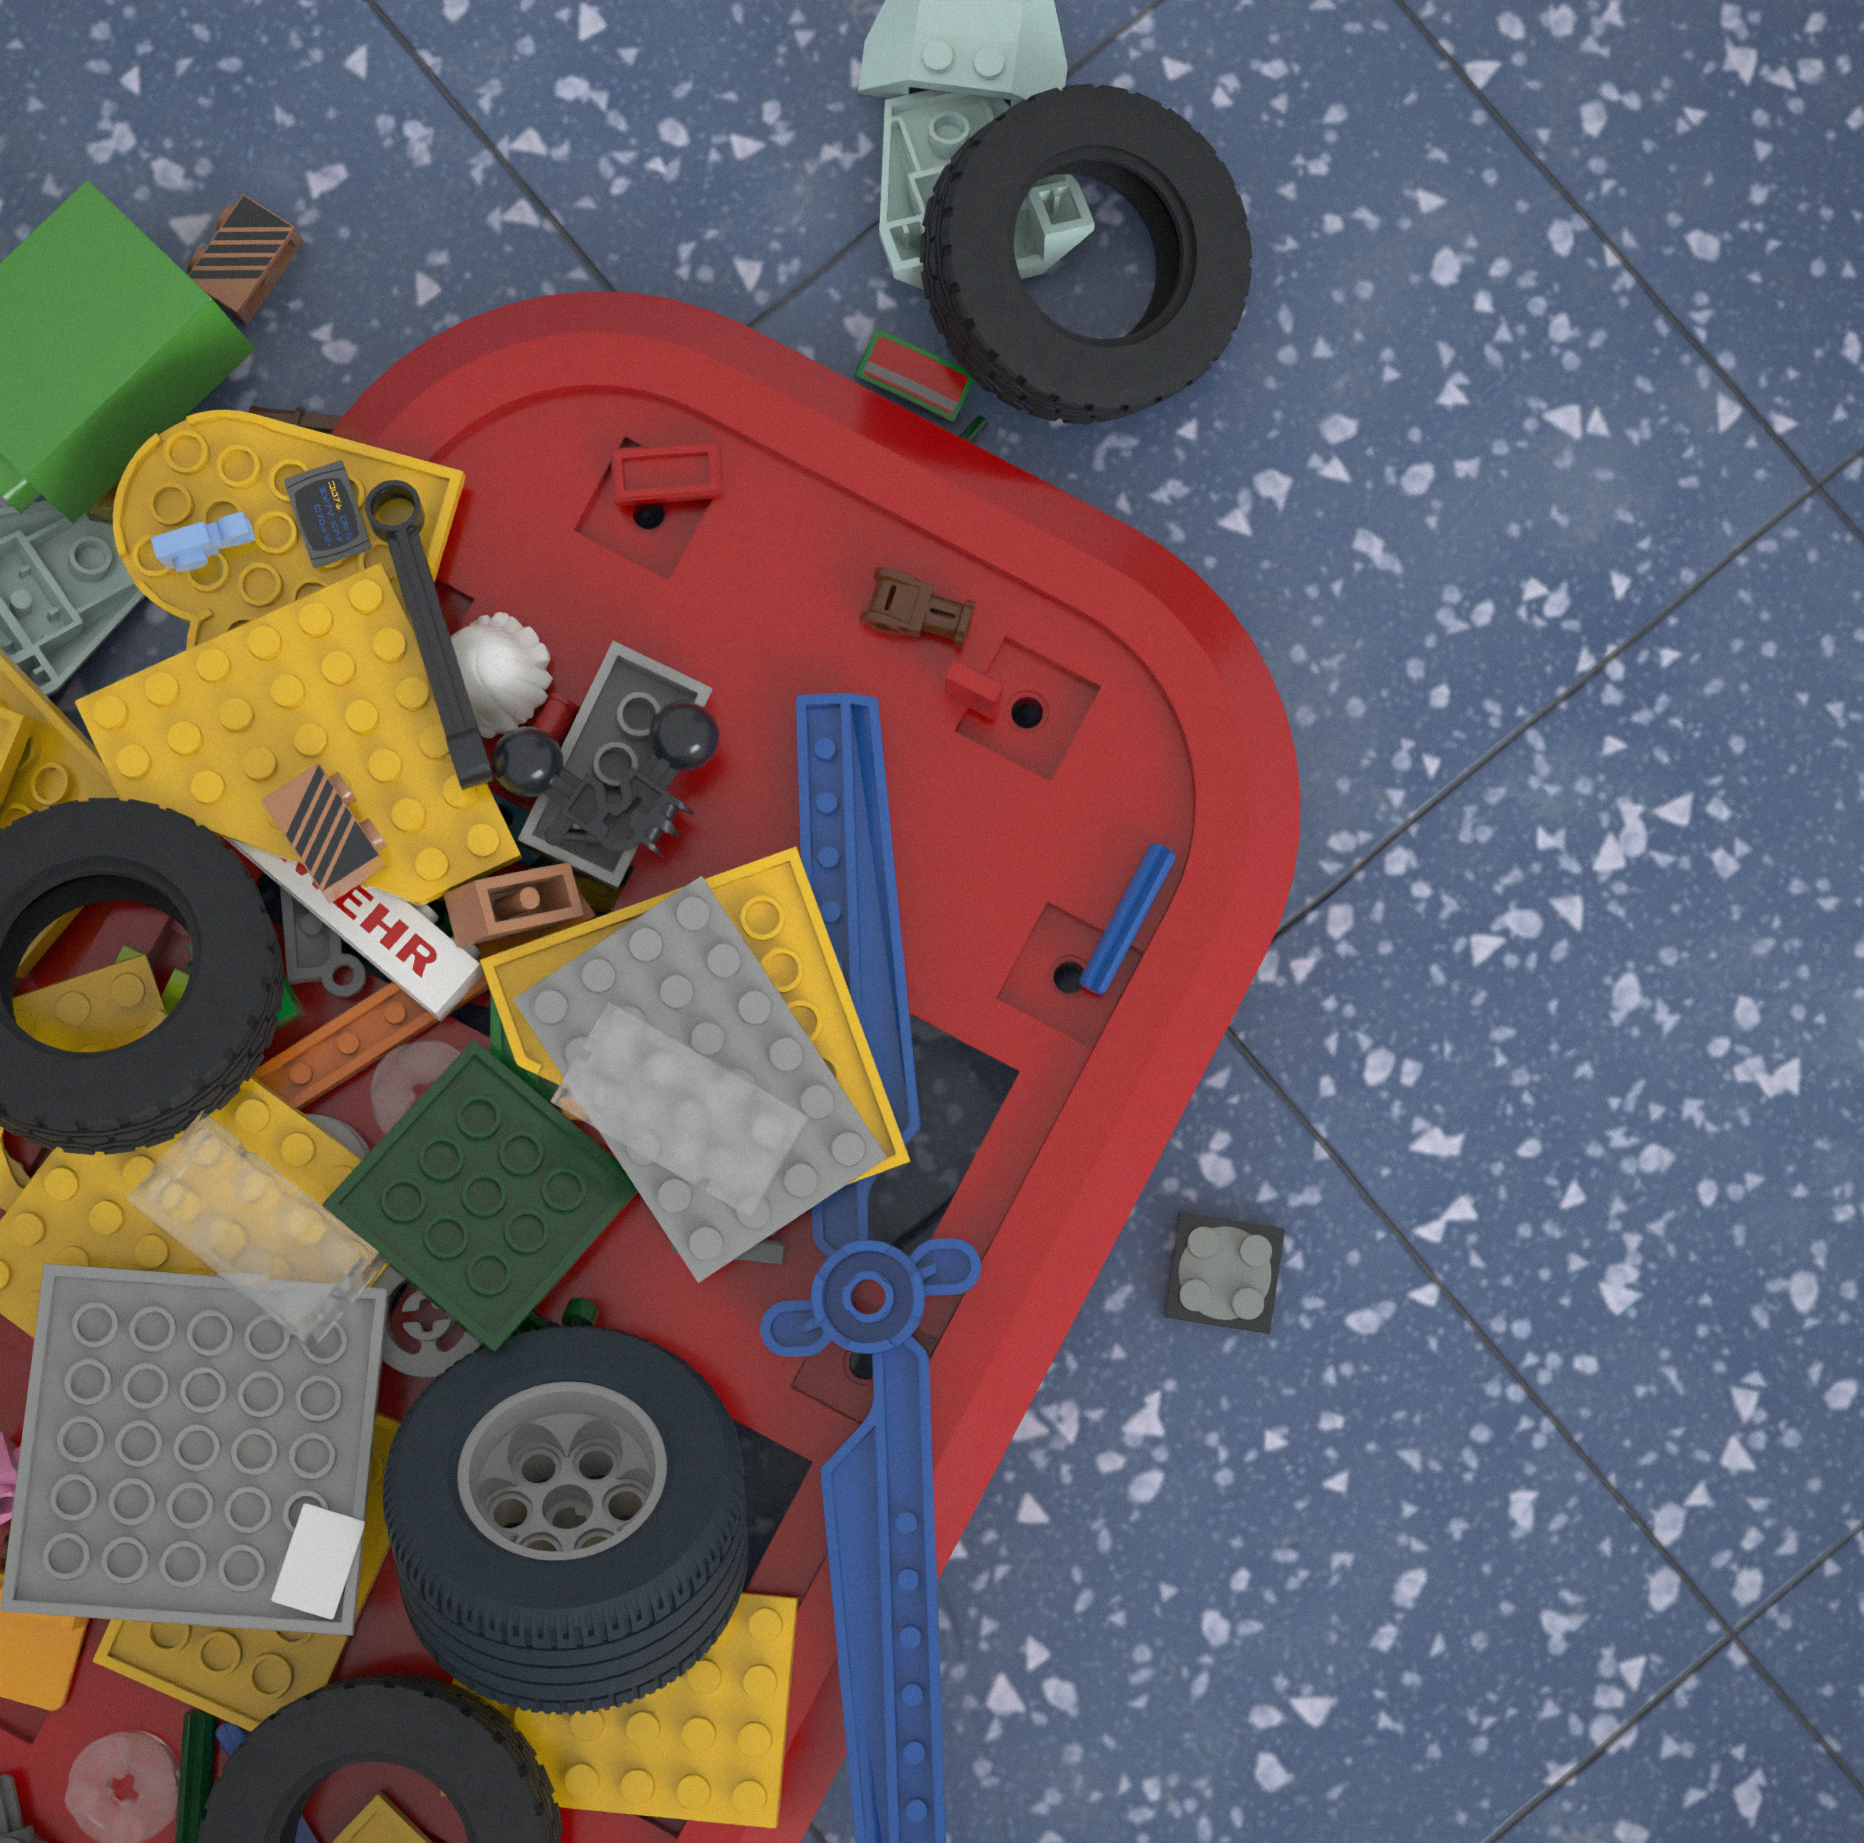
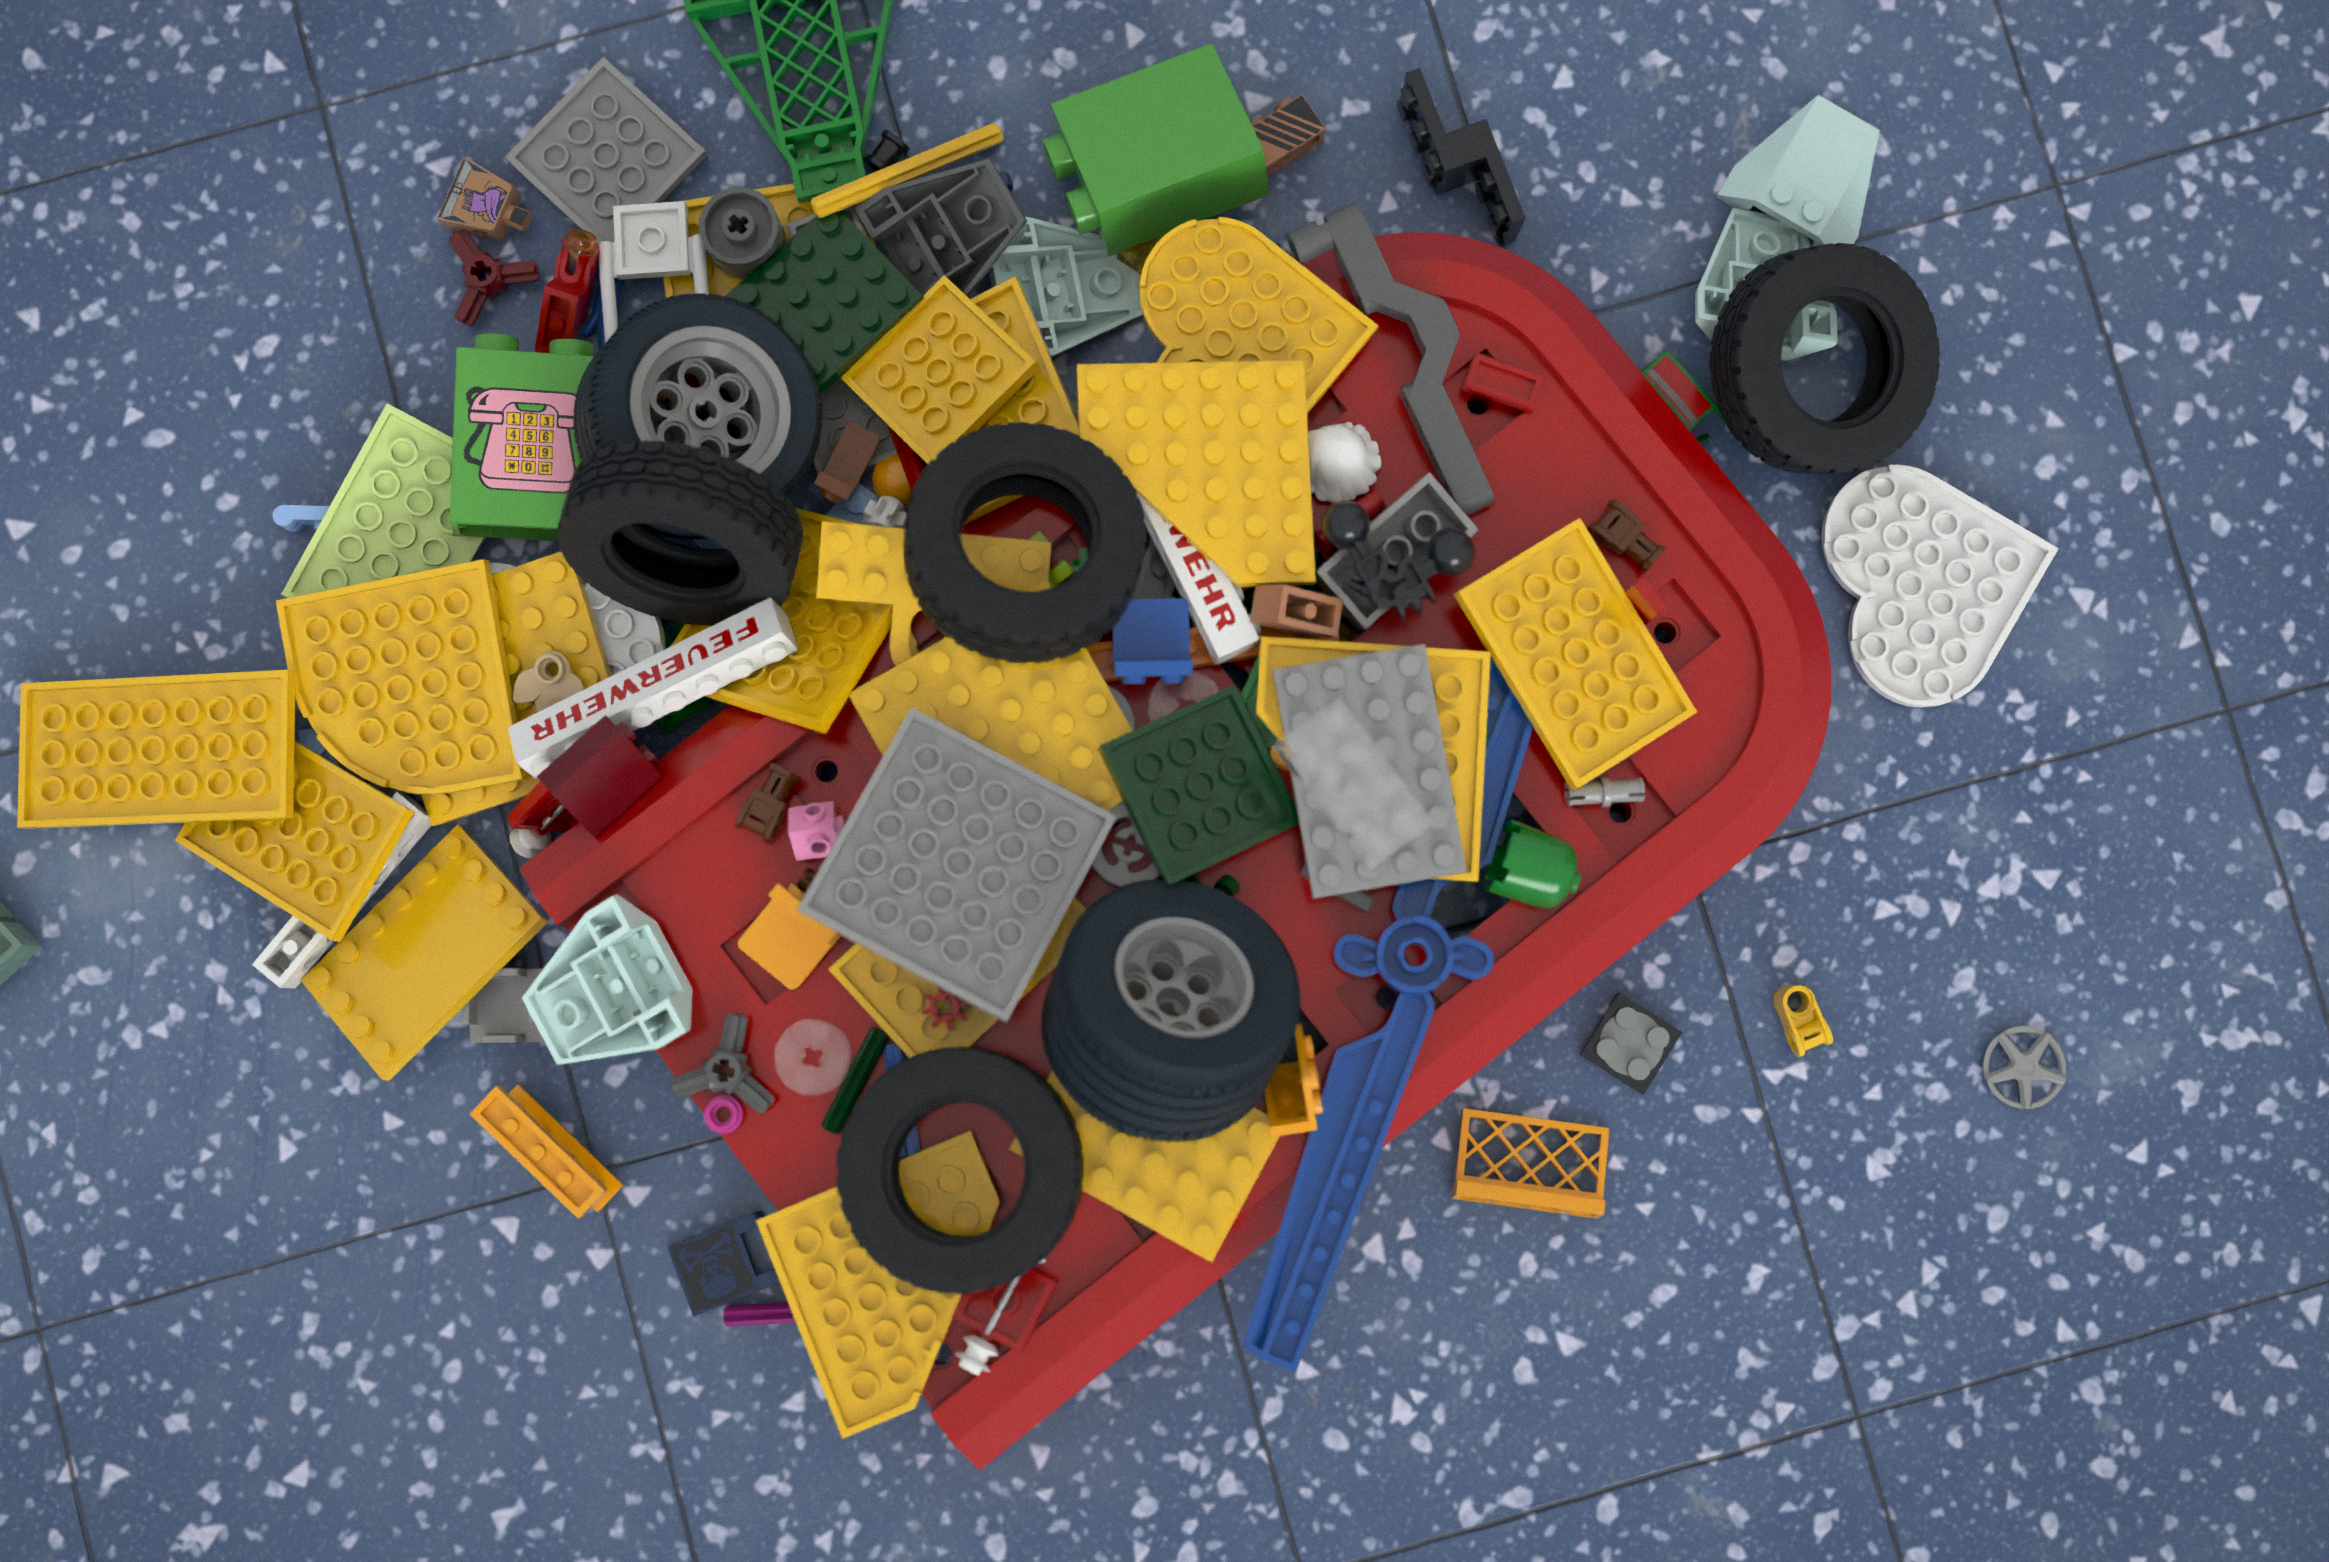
camera: 25 degrees right, 0 degrees up
(191, 545) = (1189, 298): light blue plate -> none
(255, 1230) = (1053, 744): clear piece -> none
(258, 1654) = (935, 1009): none -> red gear
(318, 1561) = (1005, 966): white sticker -> none
(325, 832) = (1203, 513): brick -> none
(327, 514) = (1282, 316): sticker -> none
(338, 1029) = (1152, 641): none -> blue bracket
(432, 633) = (1313, 492): black piece -> none
(491, 189) = (1460, 158): none -> black bracket
(546, 449) = (1433, 331): none -> dark grey beam
(782, 1550) = (1290, 1094): none -> light orange bracket
(912, 797) = (1575, 654): none -> yellow plate
(979, 1108) = (1533, 867): none -> green cylinder
(1032, 963) = (1606, 792): none -> light grey pin
(1127, 918) = (1676, 789): blue axle -> none
(1174, 1536) = (1529, 1195): none -> light orange fence
(1358, 481) = (1930, 580): none -> white plate
(1437, 1144) = (1804, 1026): none -> yellow piece
(1753, 1075) = (2025, 1067): none -> light grey wheel

